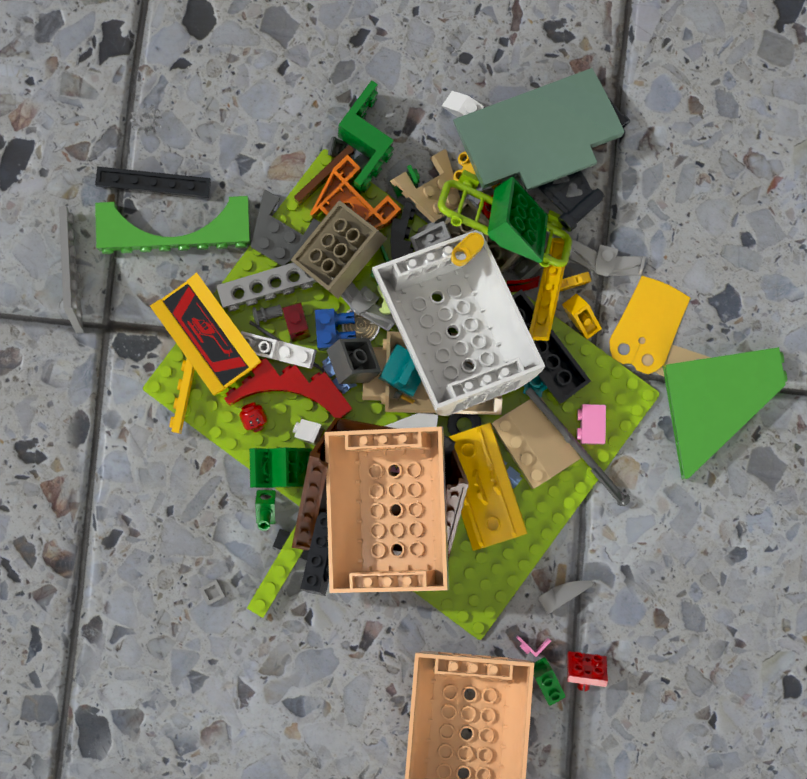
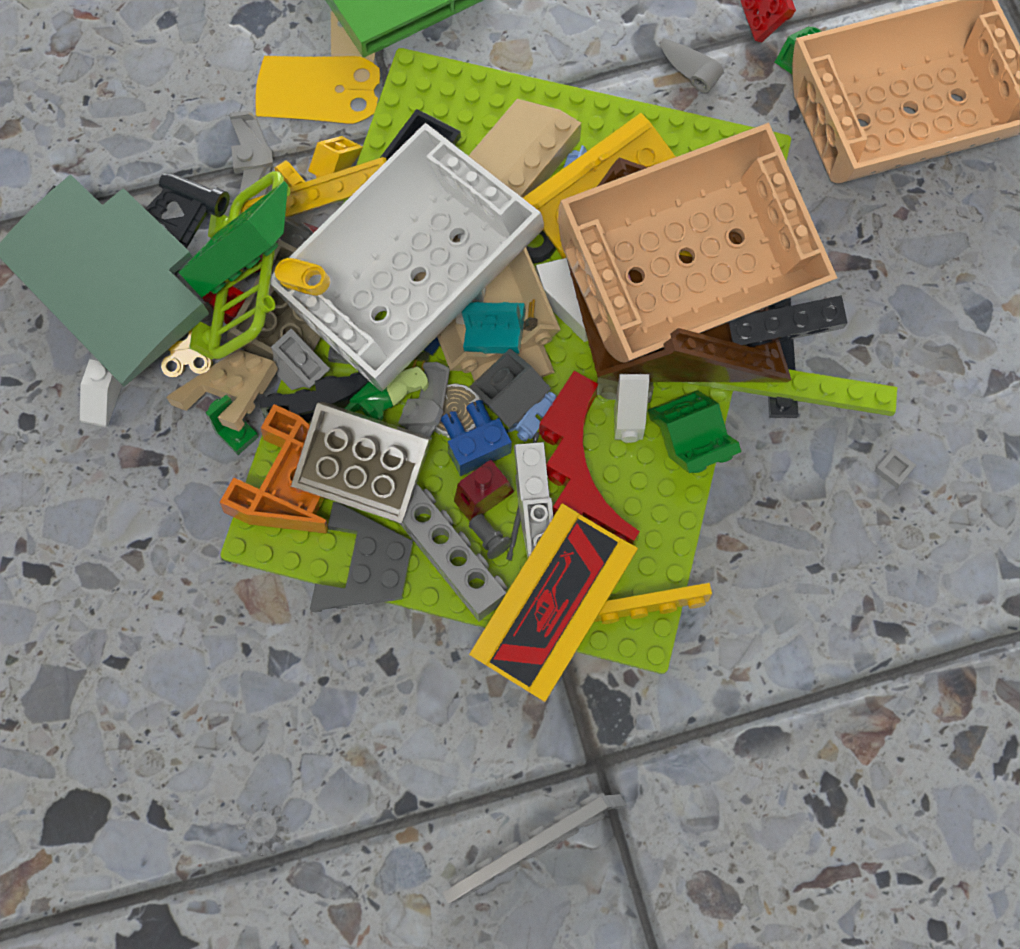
camera: 110 degrees left, 15 degrees down
(153, 182) = (357, 781): black plate -> none
(227, 229) = (453, 799): bright green arch -> none
(253, 417) = (640, 497): red head -> none
(265, 509) = (759, 437): green bracket -> none
(321, 177) = (260, 533): reddish brown tile -> none
(335, 147) = (214, 539): dark grey slope -> none
(366, 138) = (185, 493): green bracket -> none
(527, 649) = (773, 71): bright pink bracket -> none
(592, 424) = (469, 96): bright pink brick -> none
(622, 500) = (546, 42): dark grey bar -> none

